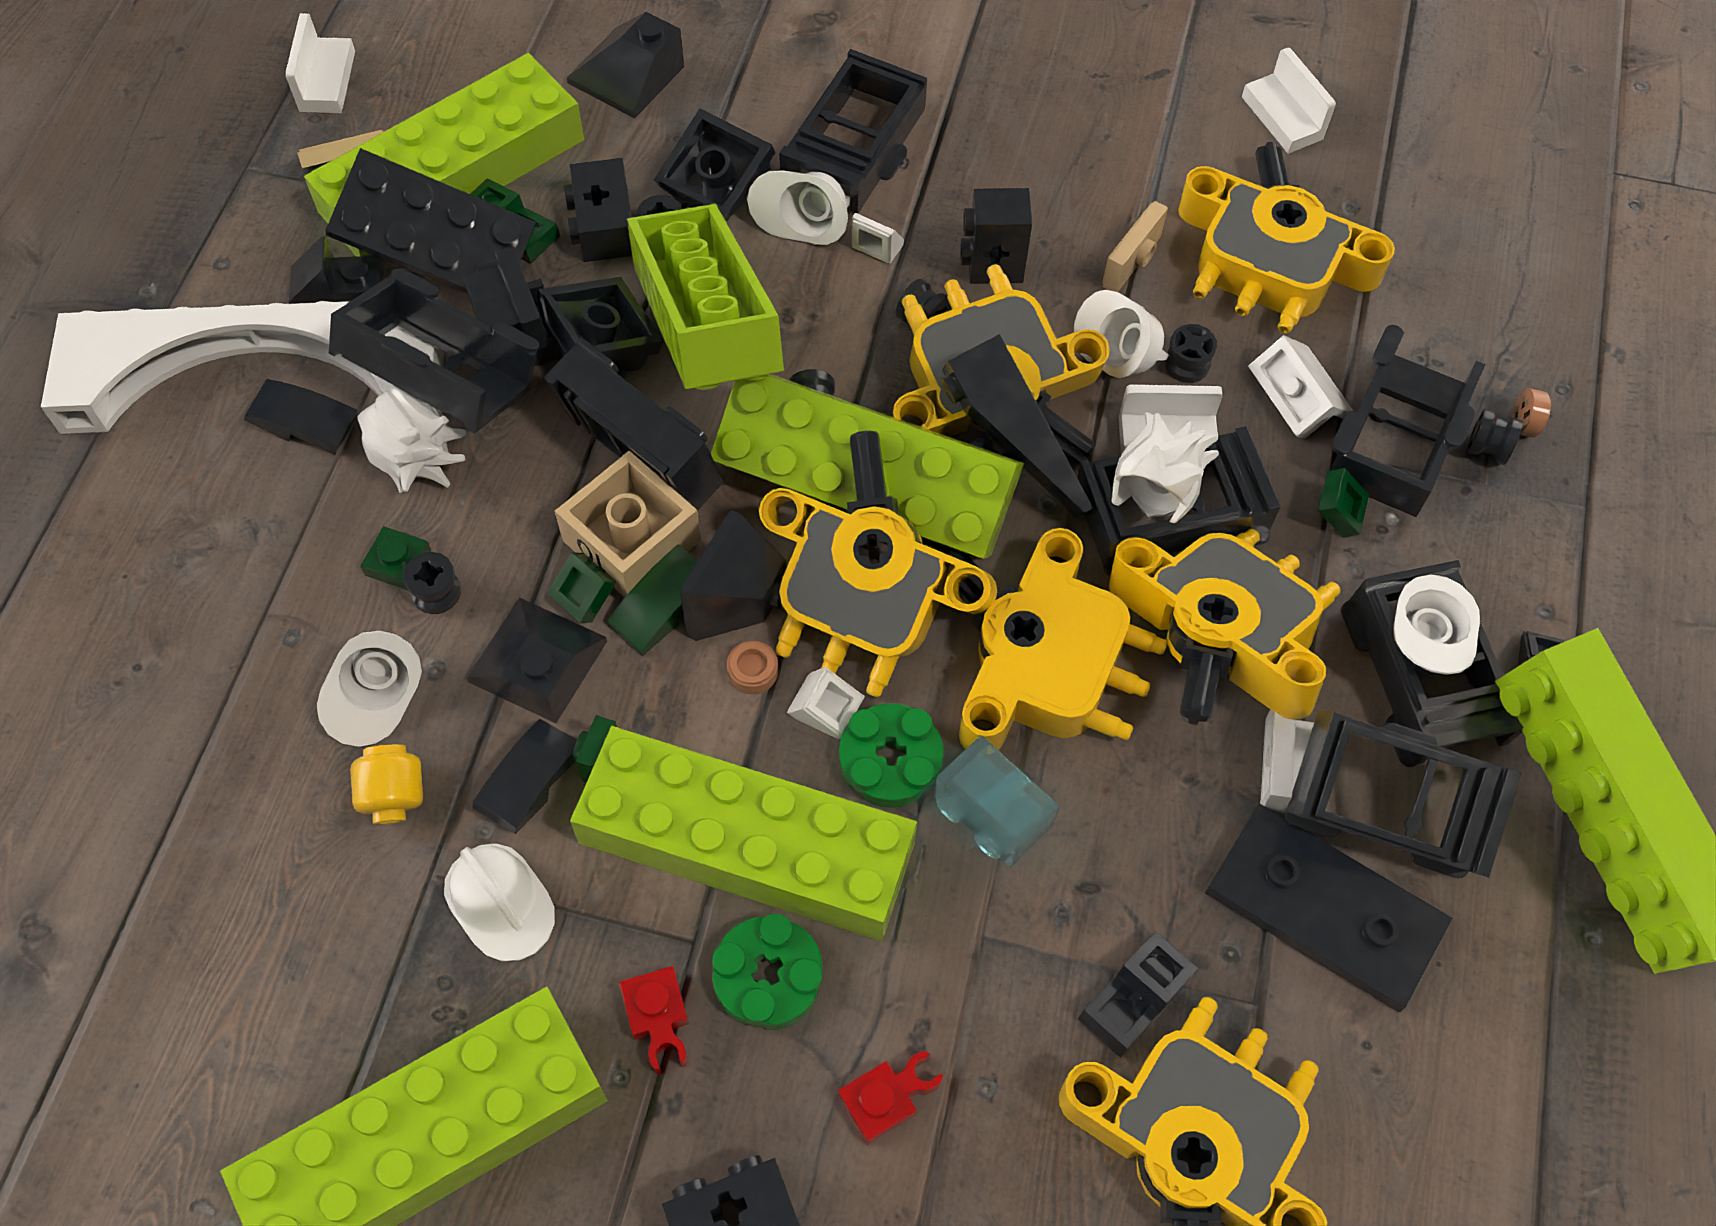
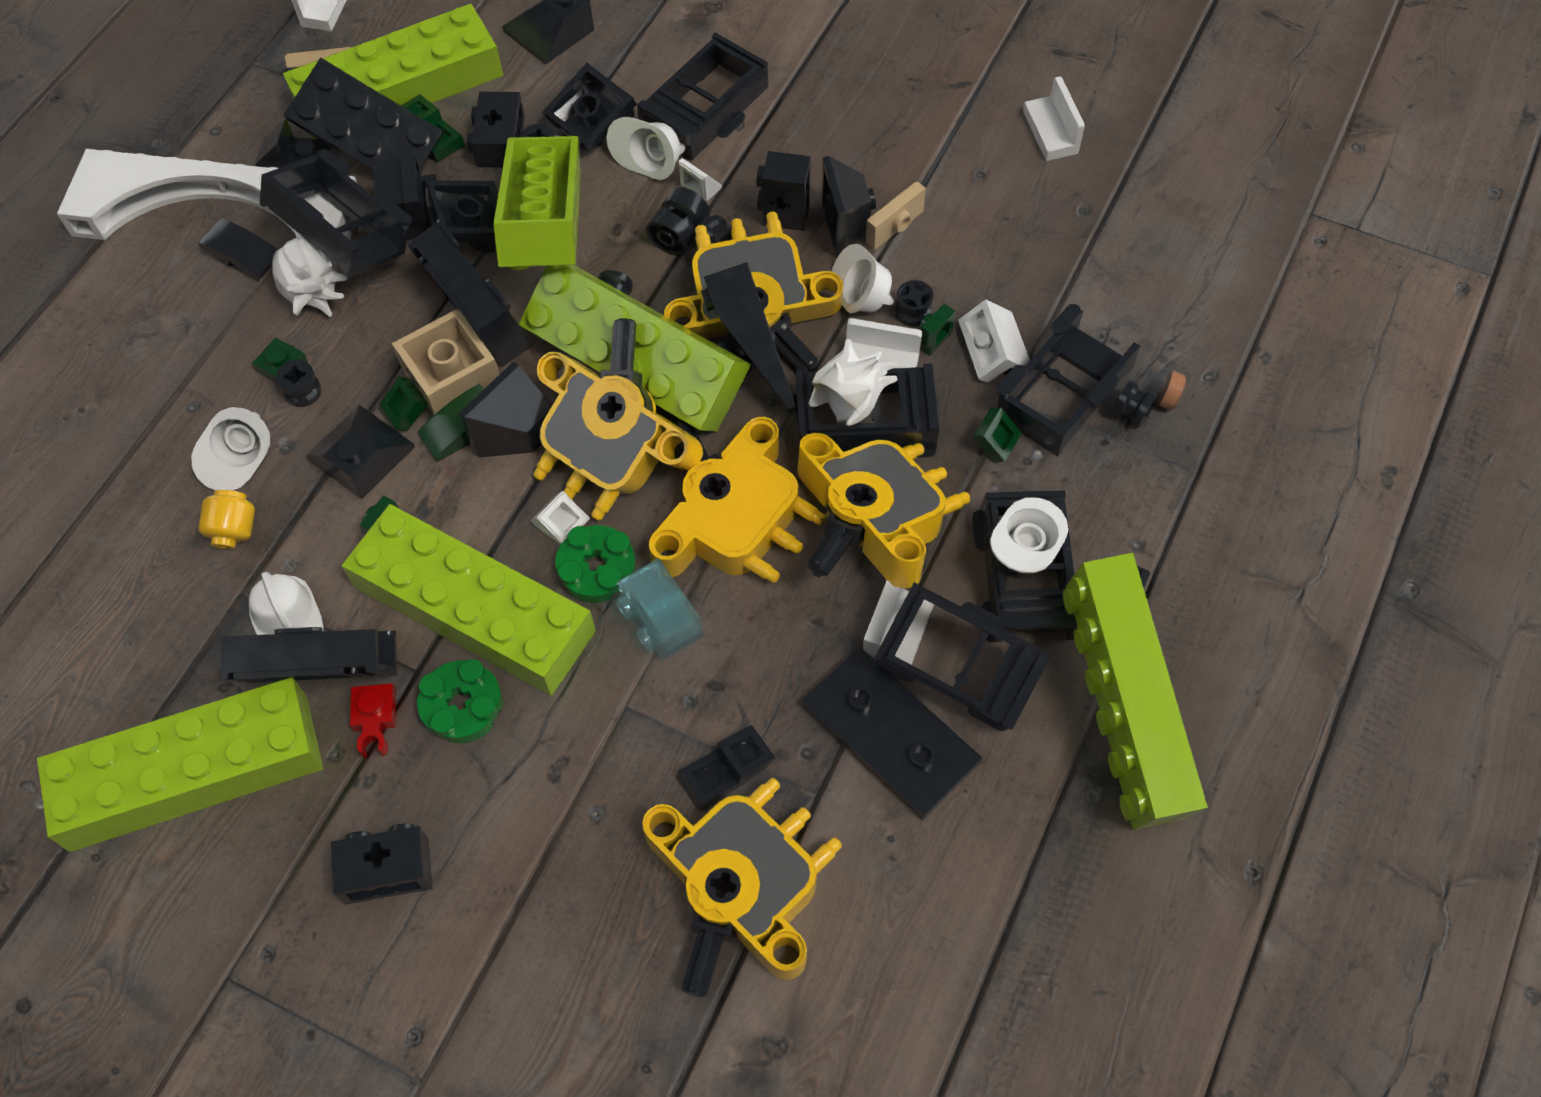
camera: 15 degrees right, 0 degrees up
(524, 776) = (324, 531): black slope -> none
(558, 952) = (308, 655): none -> black piece
(752, 667) = (513, 483): nougat tile -> none
(869, 293) = (675, 223): none -> black wheel
(882, 1099) = (516, 804): red plate -> none
(1070, 243) = (845, 203): none -> black slope
(1230, 377) = (936, 328): none -> dark green plate
(1276, 241) = (1009, 228): yellow piece -> none

